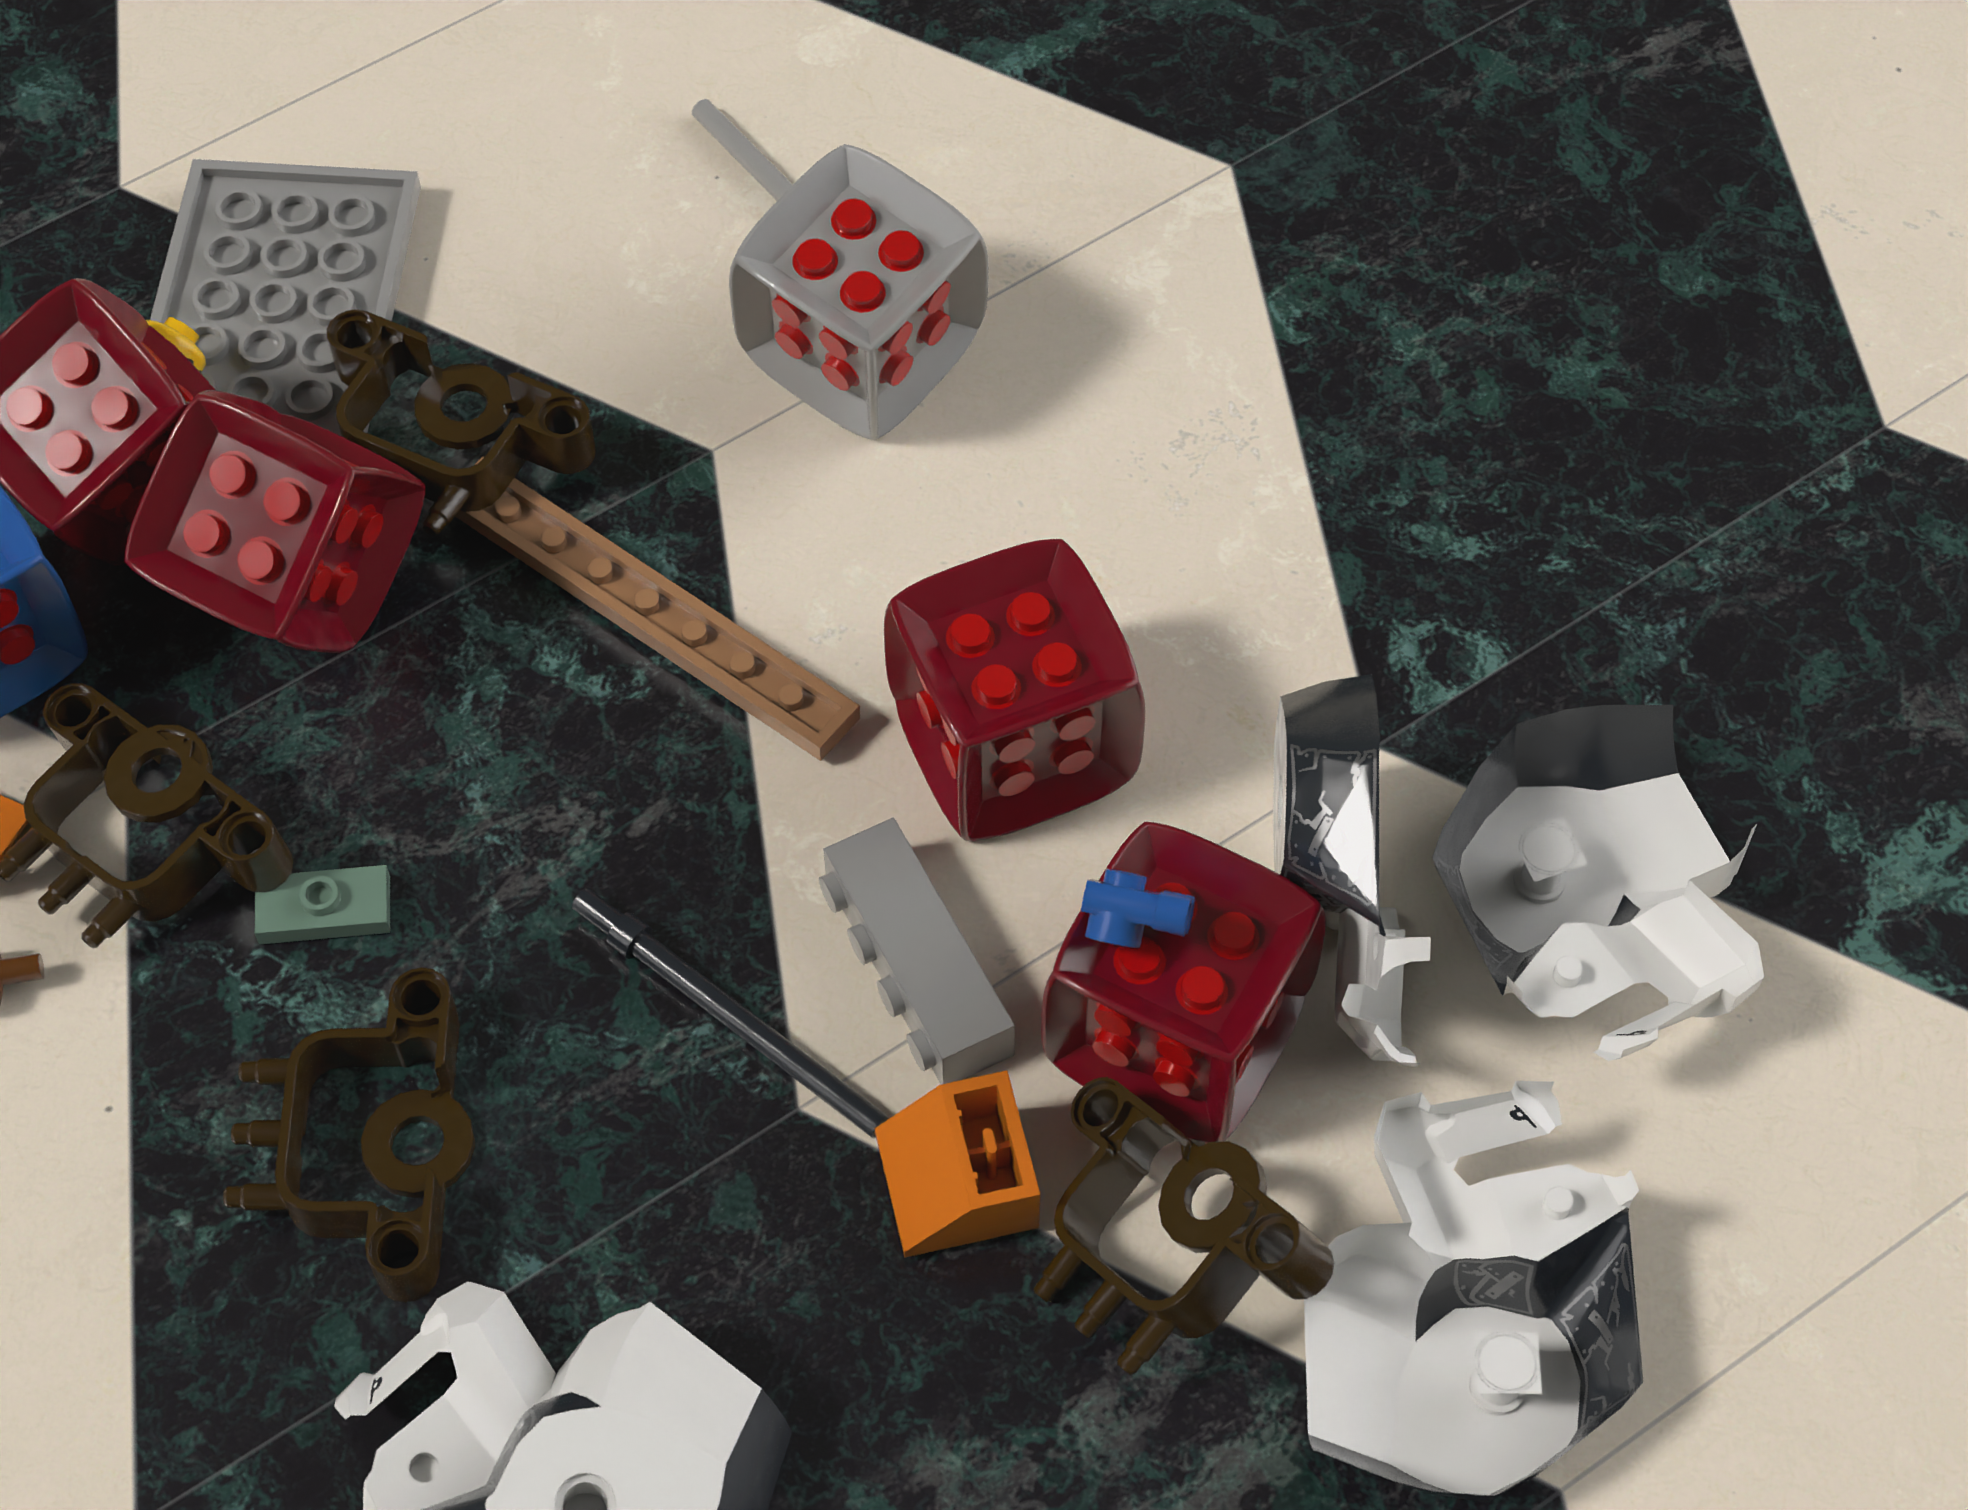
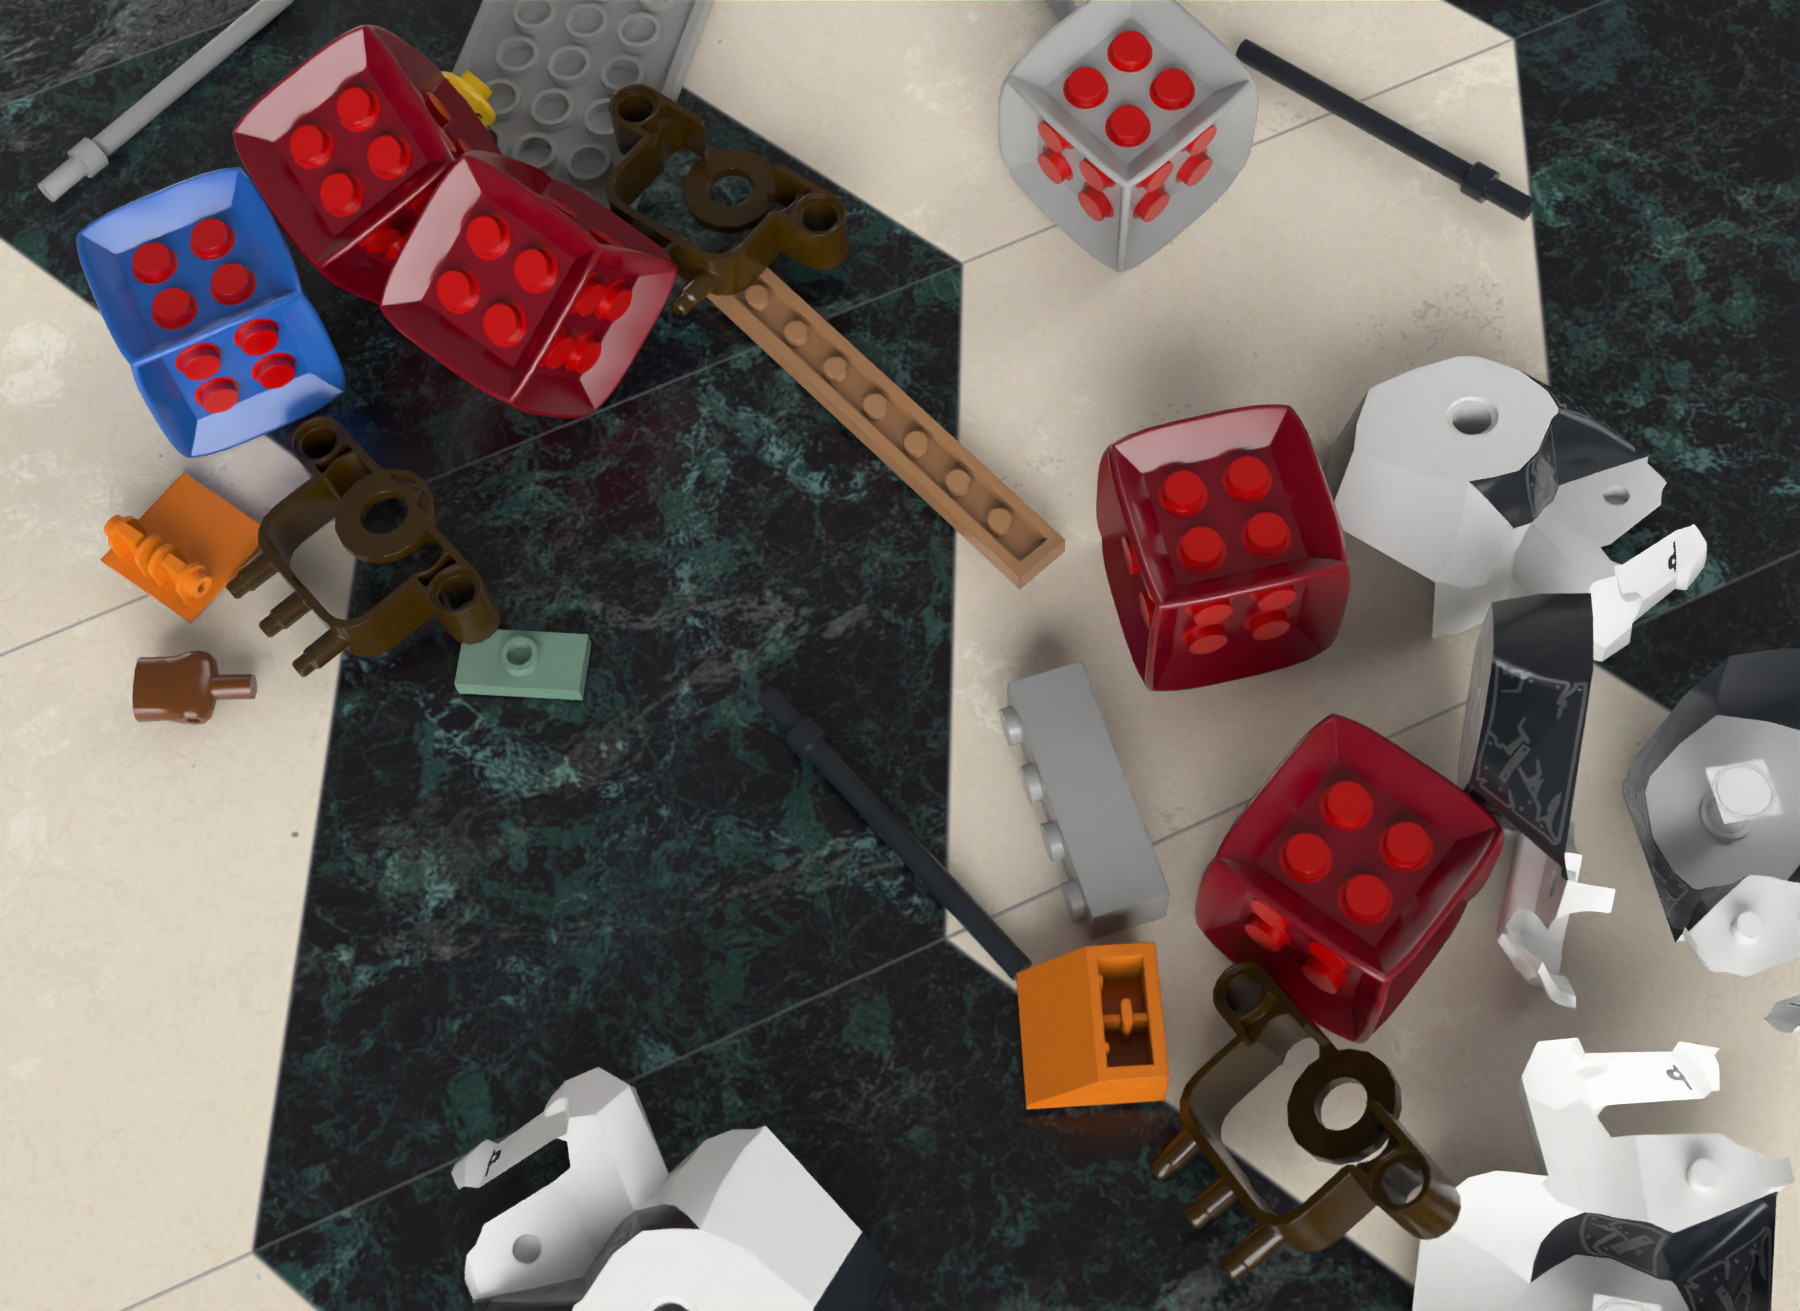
camera: 15 degrees right, 5 degrees up
(401, 1044) = (575, 815): dark brown piece -> none
(1123, 907) = (1297, 804): blue plate -> none
(1213, 306) = (1476, 180): none -> black bar
(1279, 594) = (1504, 494): none -> white piece

